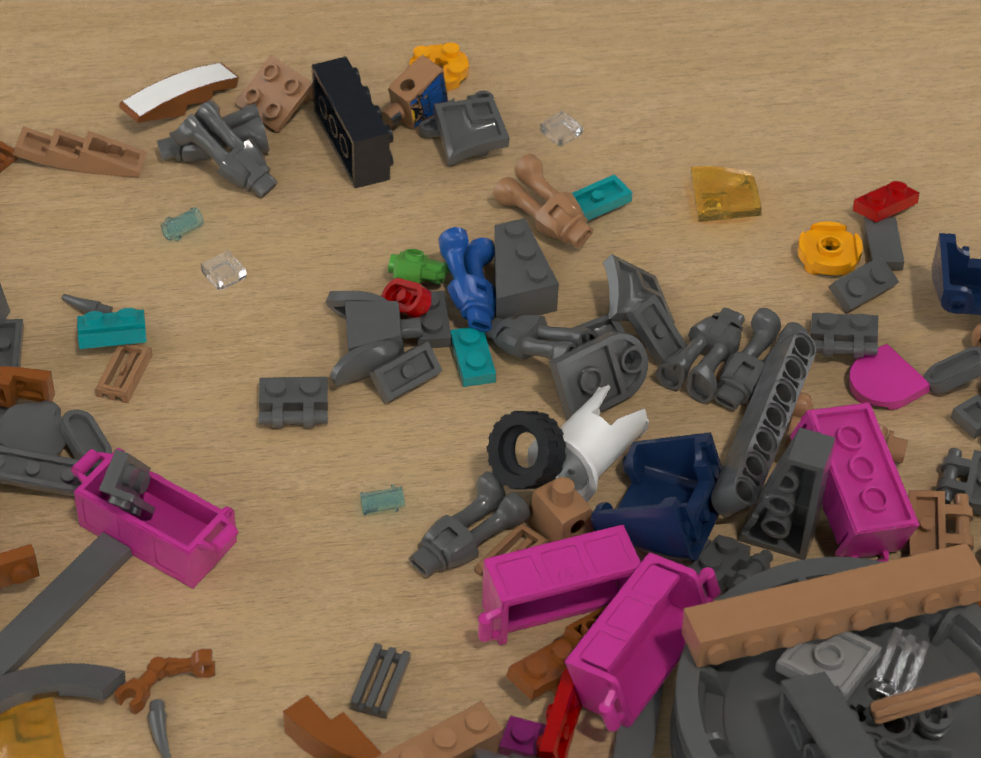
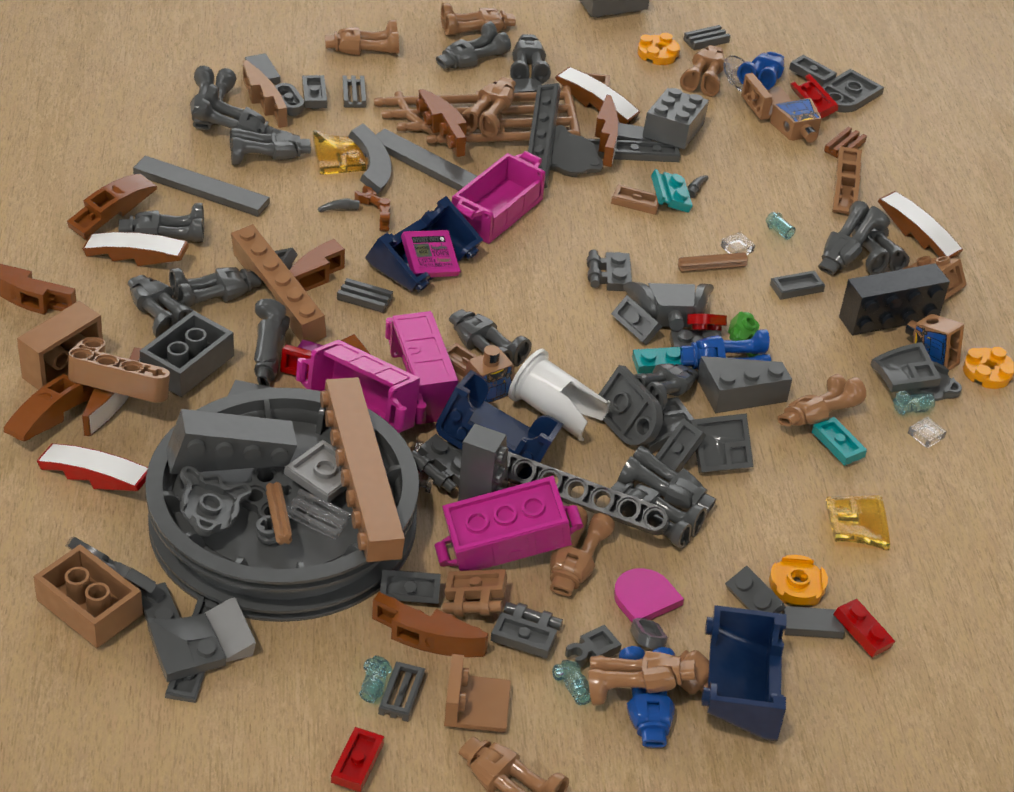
camera: 90 degrees right, 5 degrees down
(82, 434) = (571, 178): dark grey tile -> none
(125, 482) = (507, 169): dark grey bracket -> none
(265, 296) = (712, 261): none -> medium nougat axle
(270, 612) = (390, 256): none -> dark blue windscreen
(295, 595) = (430, 253): none -> dark pink tile
(301, 219) = (797, 285): none -> dark grey tile
(382, 500) = (517, 305): clear light blue pin -> none
(520, 131) = (913, 403): none -> clear light blue arm
(550, 449) = (528, 342): black tyre -> none
(845, 334) = (698, 574): dark grey plate -> none

